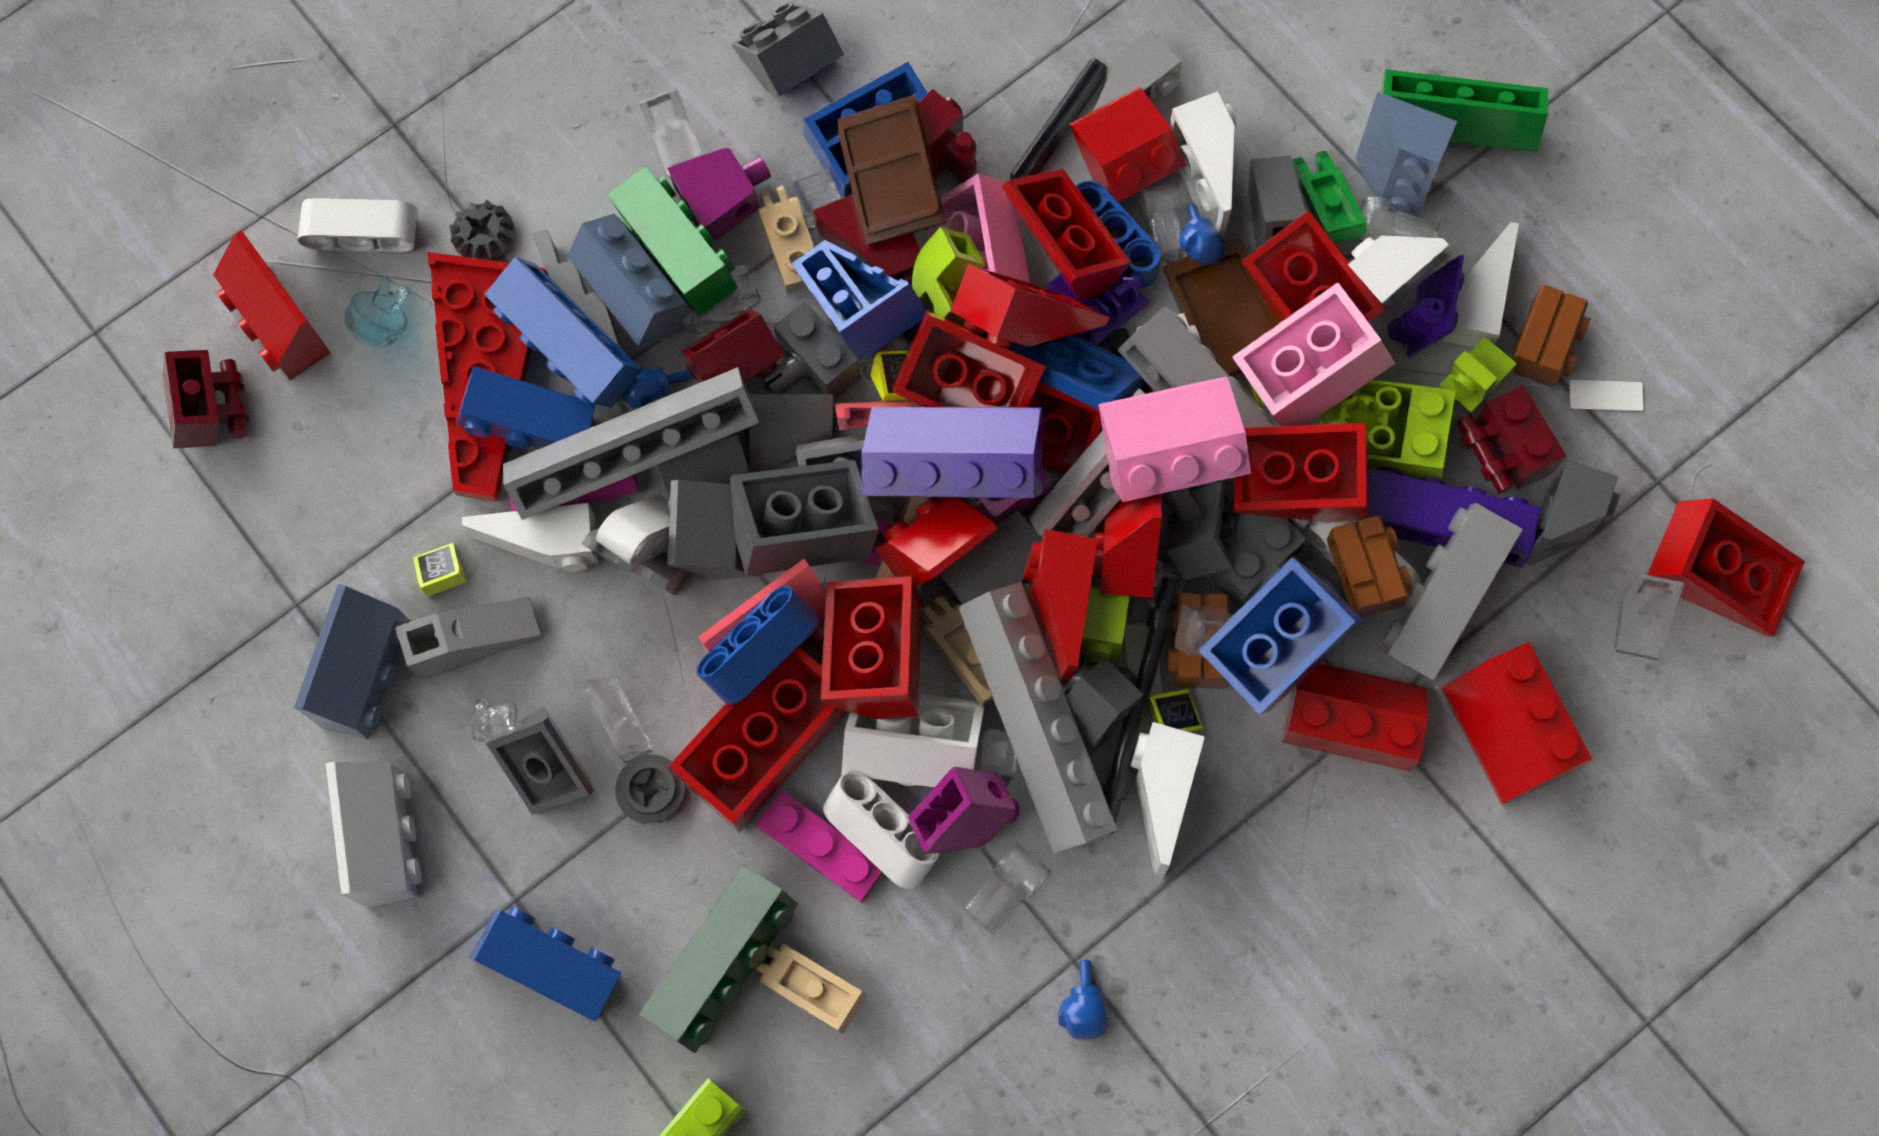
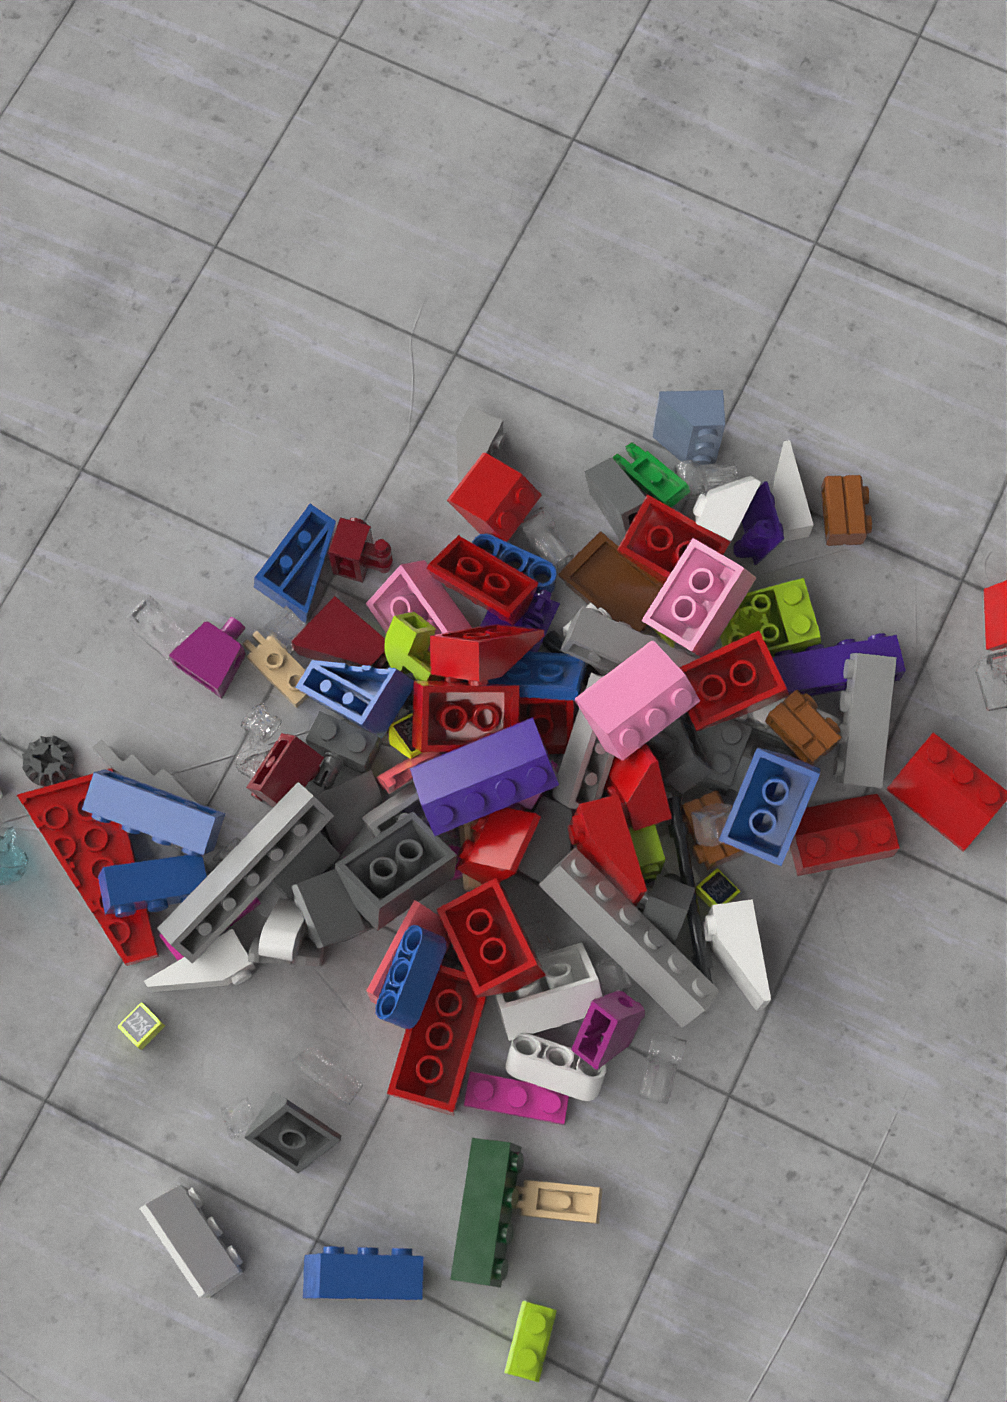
camera: 30 degrees left, 0 degrees up
(352, 664) = (117, 1125): sand blue slope -> none
(466, 635) = (189, 1064): light grey slope -> none
(628, 279) = (182, 751): sand blue slope -> none
(639, 773) = (361, 1108): dark grey gear -> none
(651, 386) = (234, 820): blue piece -> none
(673, 240) = (199, 707): brick -> none
(788, 47) = (211, 527): dark grey slope -> none
(890, 171) = (338, 589): reddish brown piece -> none
(953, 642) = (542, 909): tan hinge -> none
(1058, 122) = (434, 501): black axle -> none
(1084, 1010) = (754, 1125): blue piece -> none
(1201, 239) = (577, 543): blue piece -> none
(1207, 145) = (553, 476): white slope -> none
(1478, 375) = (811, 559): lime brick -> none
(1484, 110) = (726, 369): green brick -> none
(1518, 437) = (859, 592): dark red brick -> none
(1572, 509) = (917, 625): dark grey slope -> none
(1606, 395) = (900, 534): white sticker -> none

